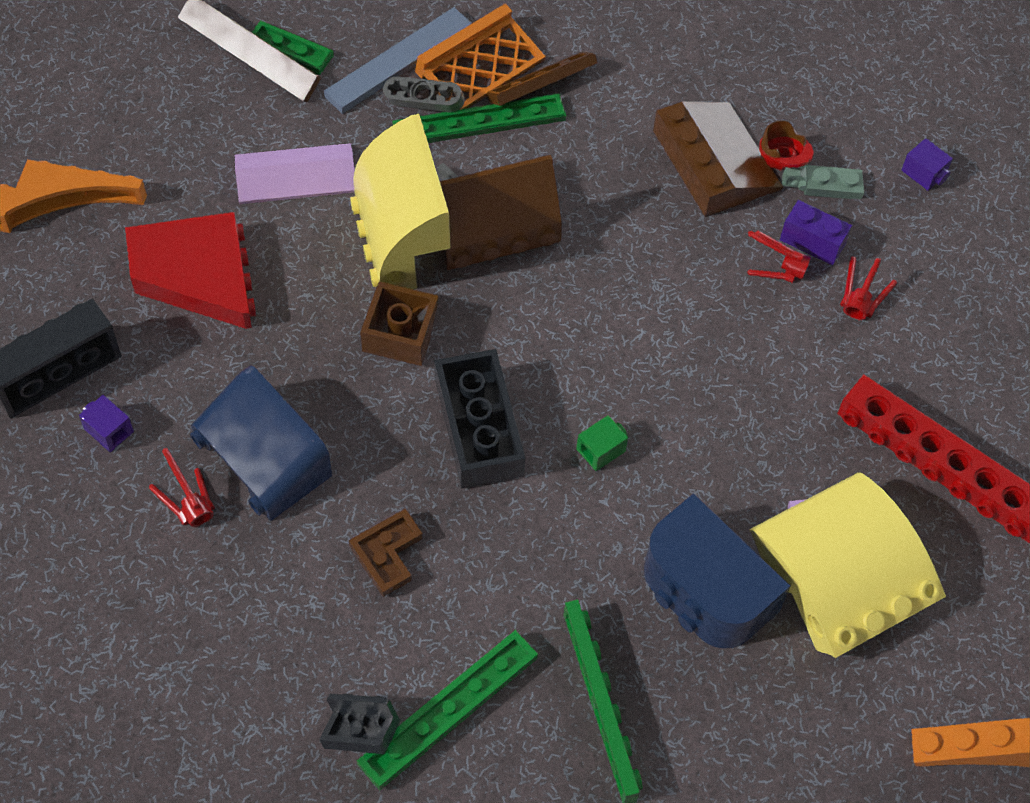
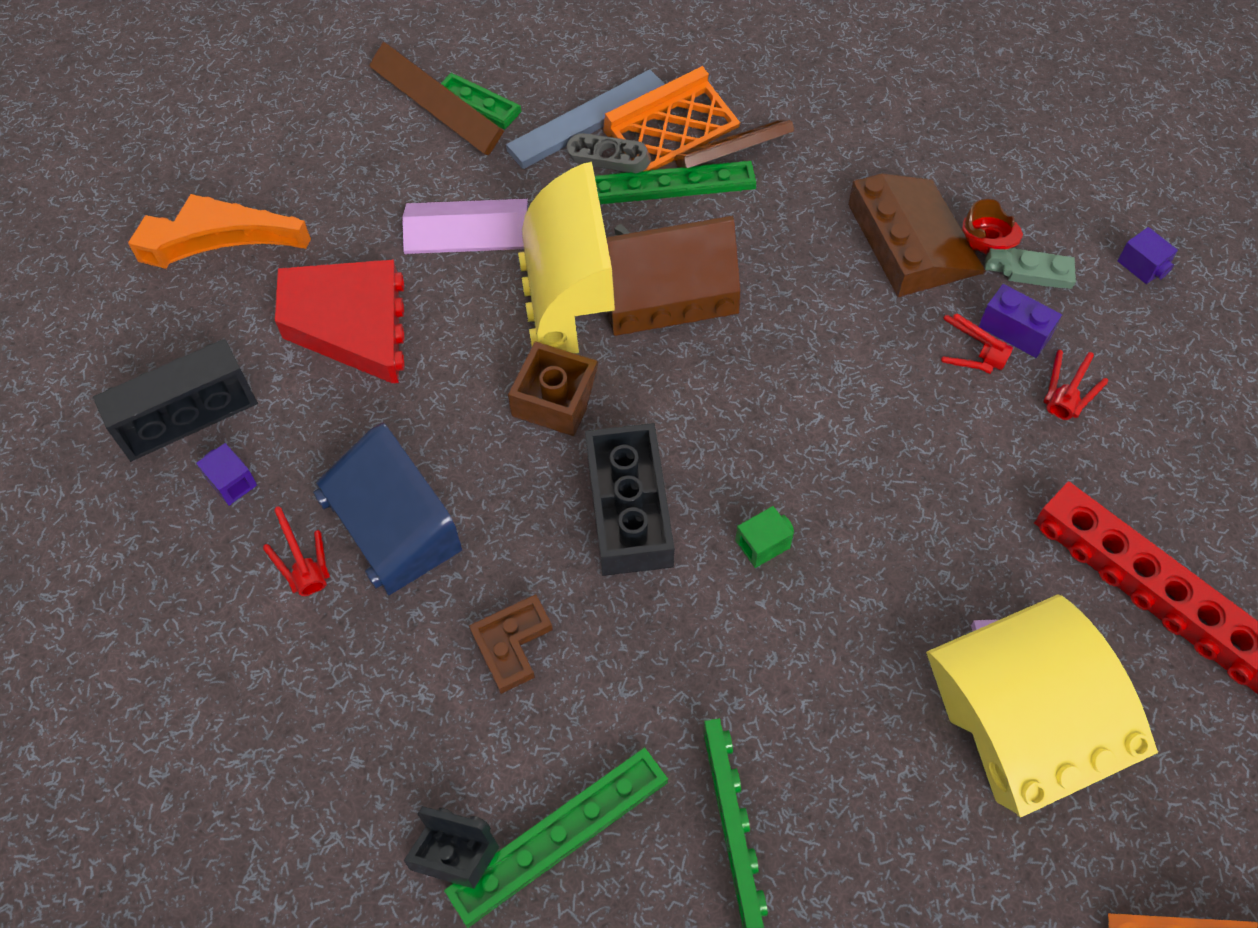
camera: 10 degrees right, 0 degrees up
(711, 576) = (877, 704): dark blue brick -> none

